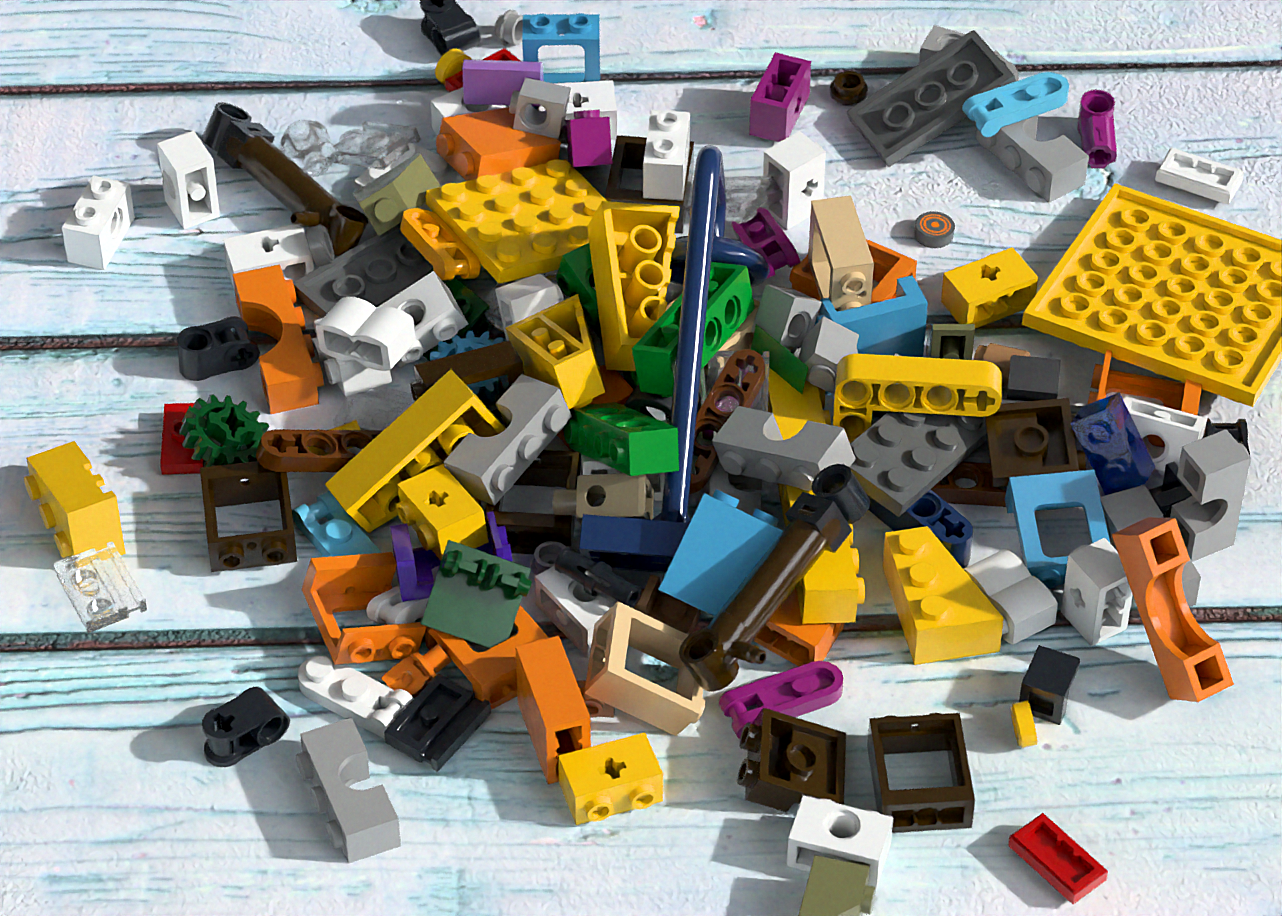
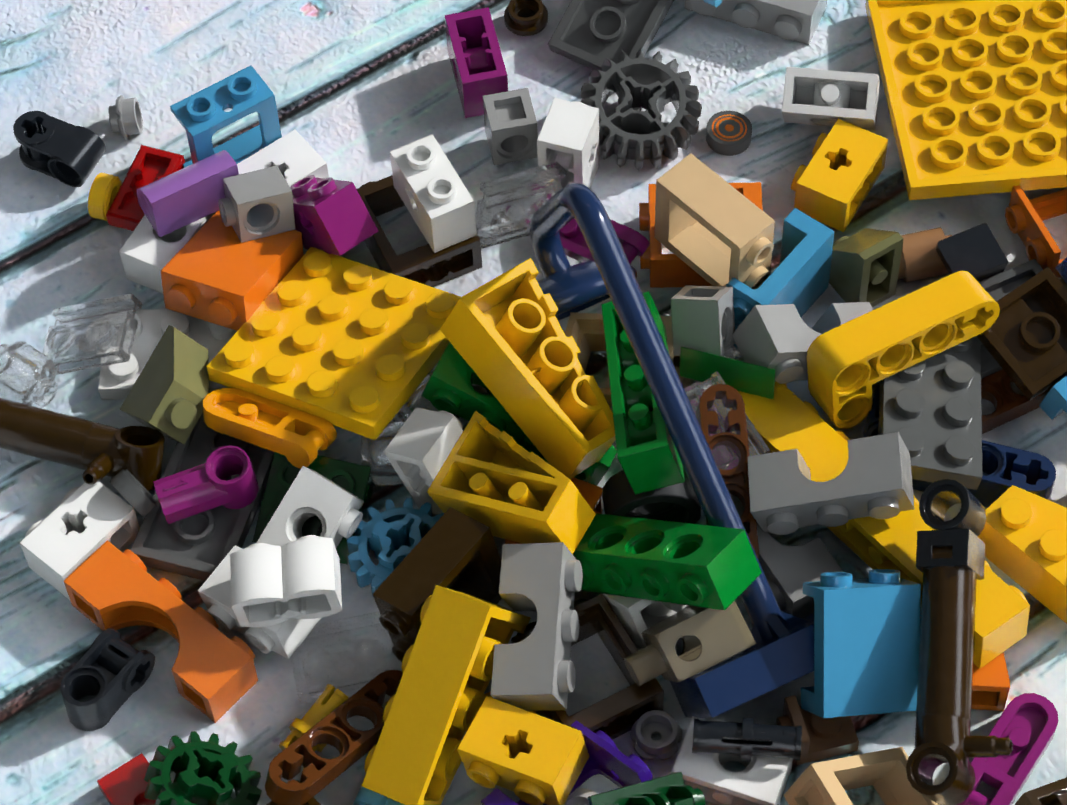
camera: 30 degrees left, 10 degrees up
(382, 262) = (206, 485): none -> magenta piece
(762, 135) = (510, 126): none -> light grey brick
(897, 173) = (647, 86): none -> dark grey gear
(1033, 237) = (826, 95): none -> white brick

